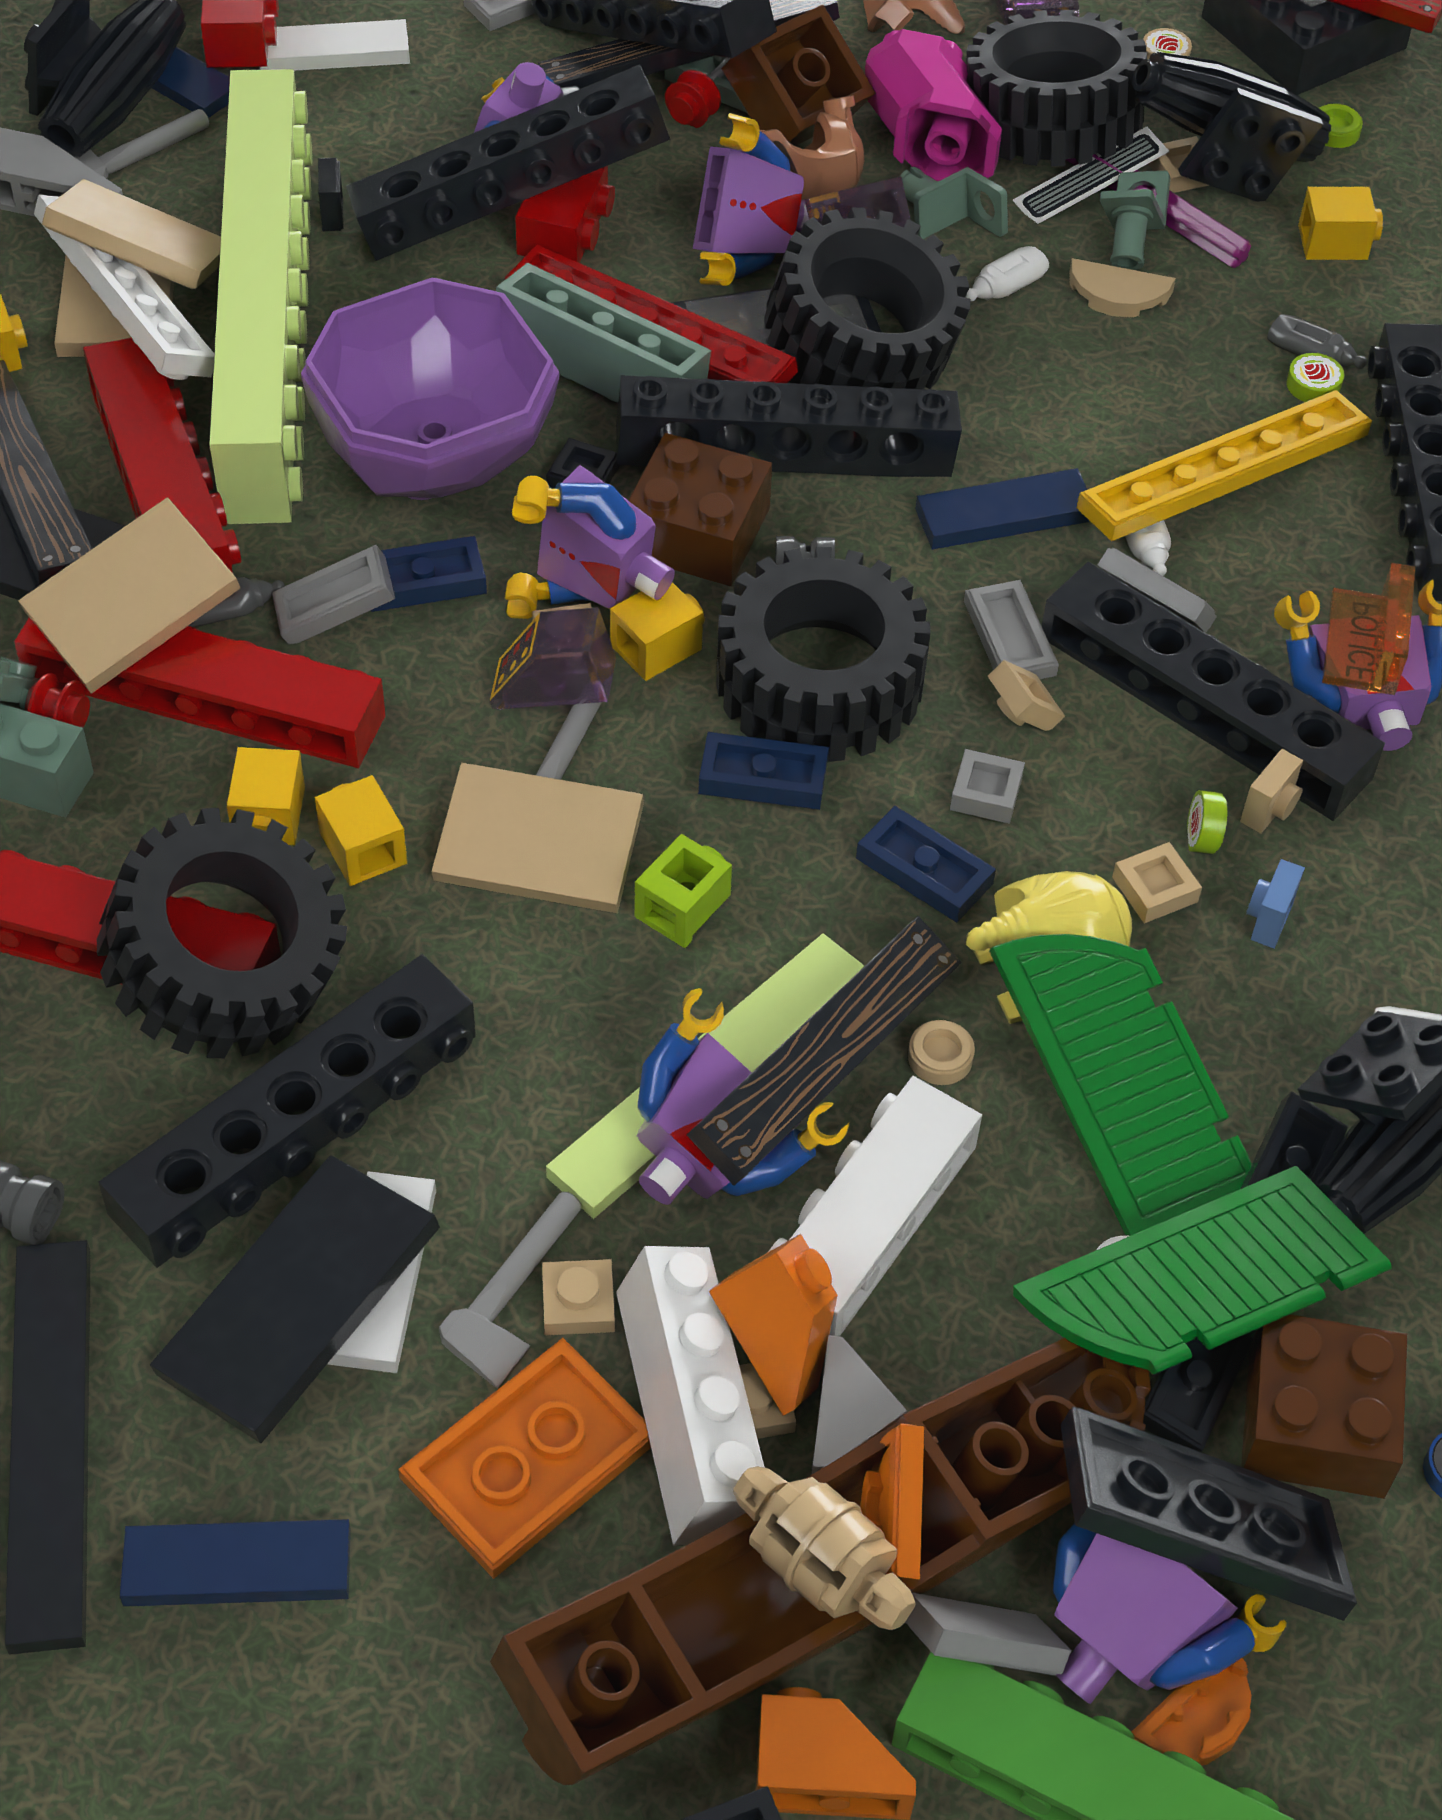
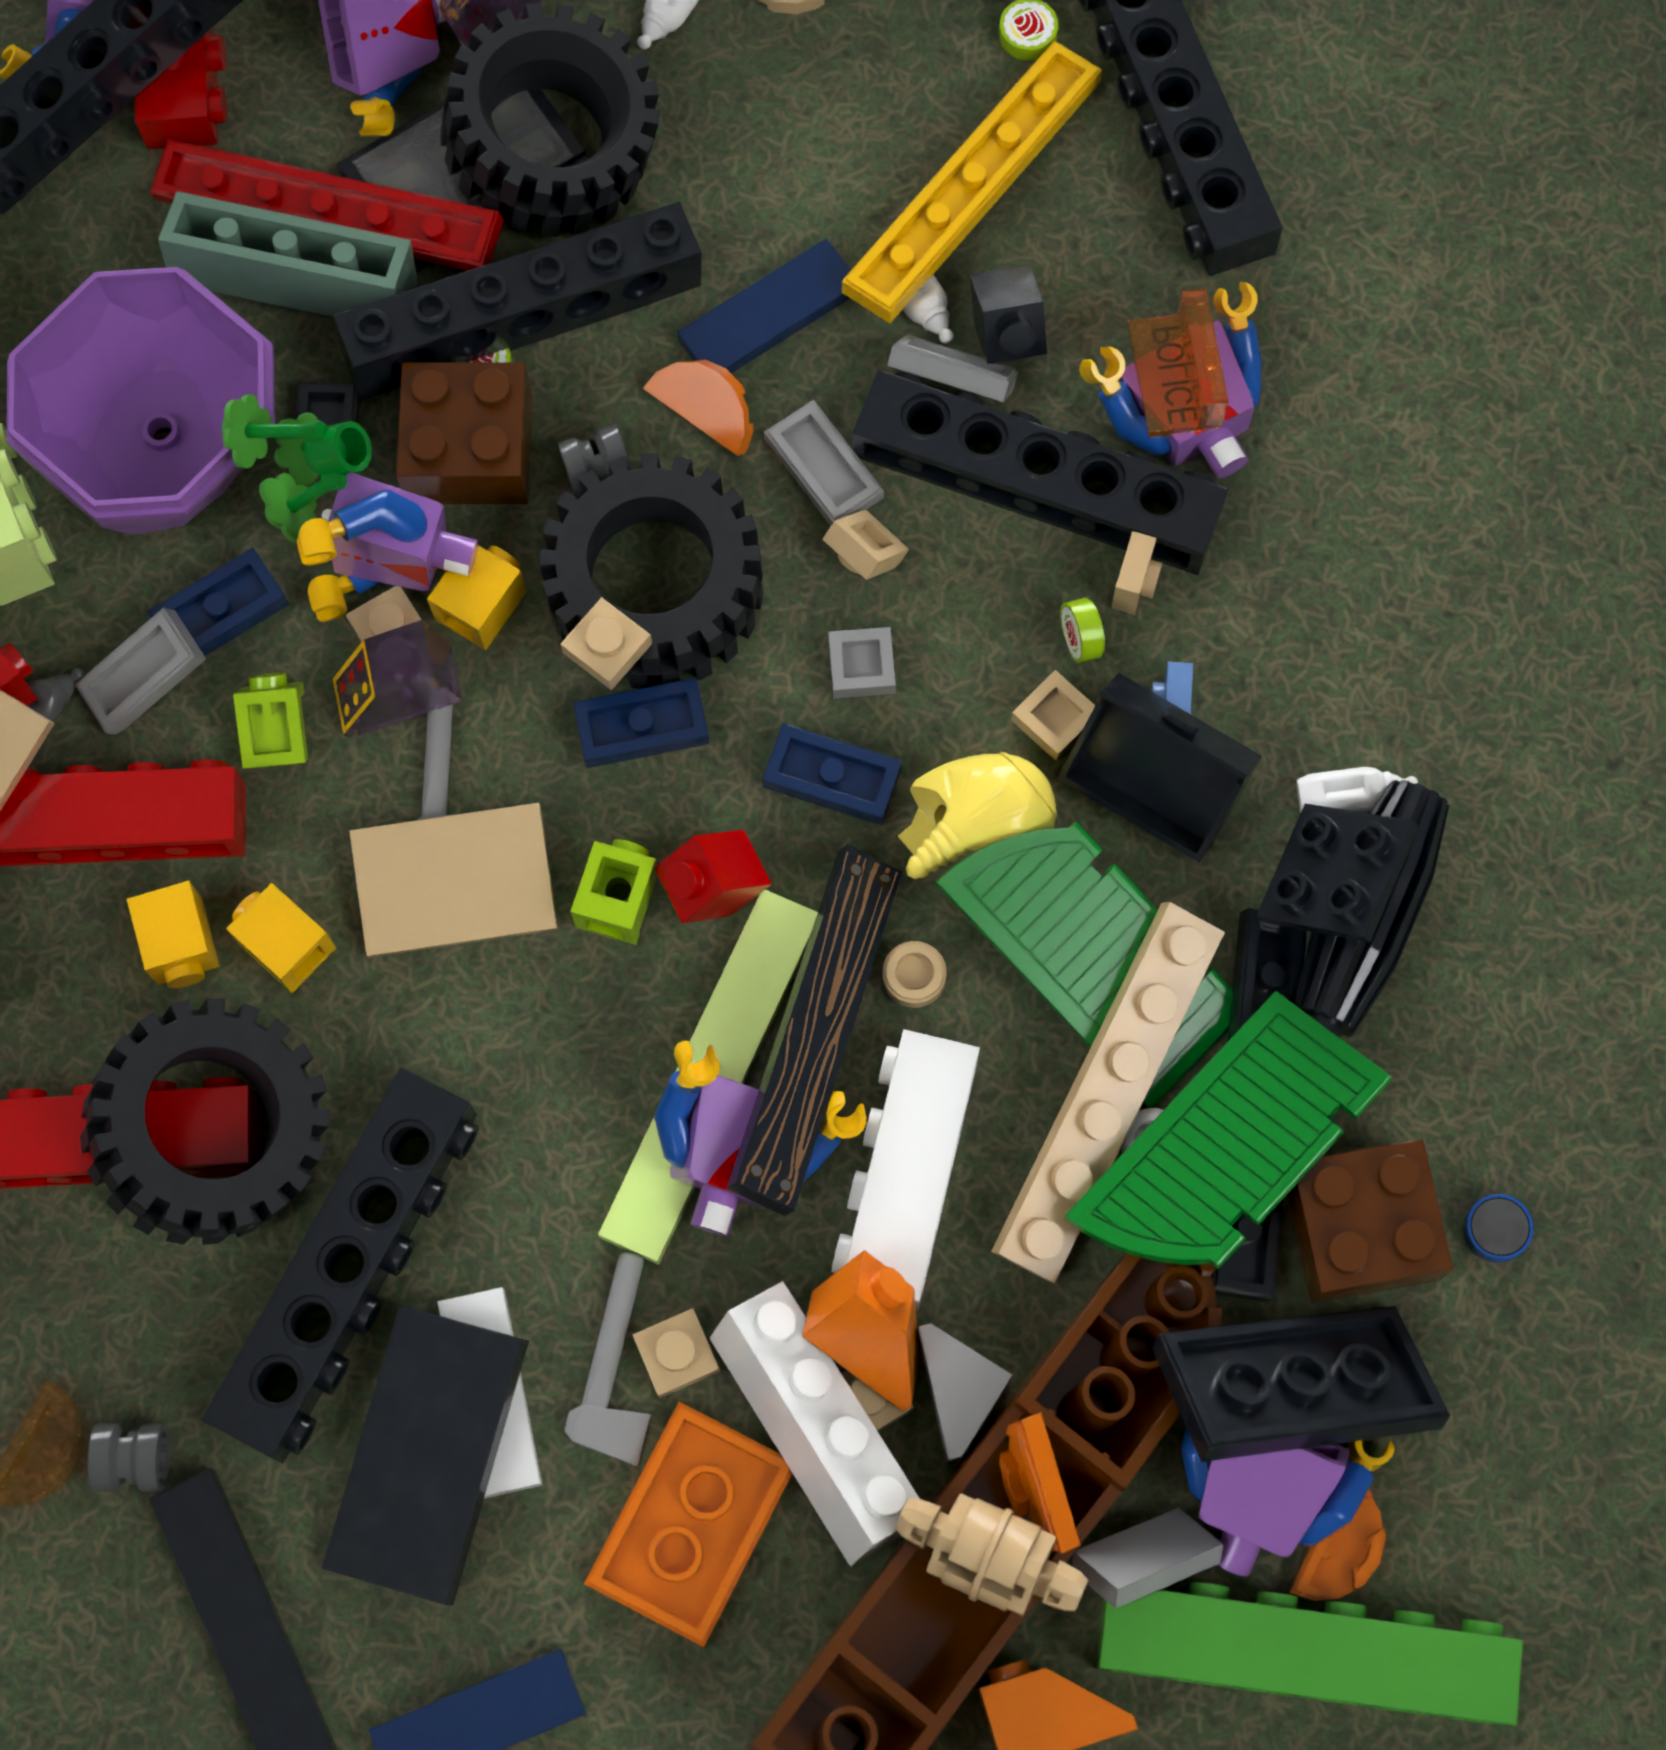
camera: 15 degrees left, 20 degrees up
(429, 667) = (270, 721): none -> lime bracket
(554, 454) = (305, 448): none -> plant
(757, 672) = (606, 643): none -> tan plate
(780, 900) = (712, 876): none -> red brick
(923, 550) = (707, 399): none -> orange tile
(1096, 1200) = (1108, 1089): none -> tan plate
(1223, 561) = (1008, 314): none -> black brick
(1243, 942) = (1159, 767): none -> black container

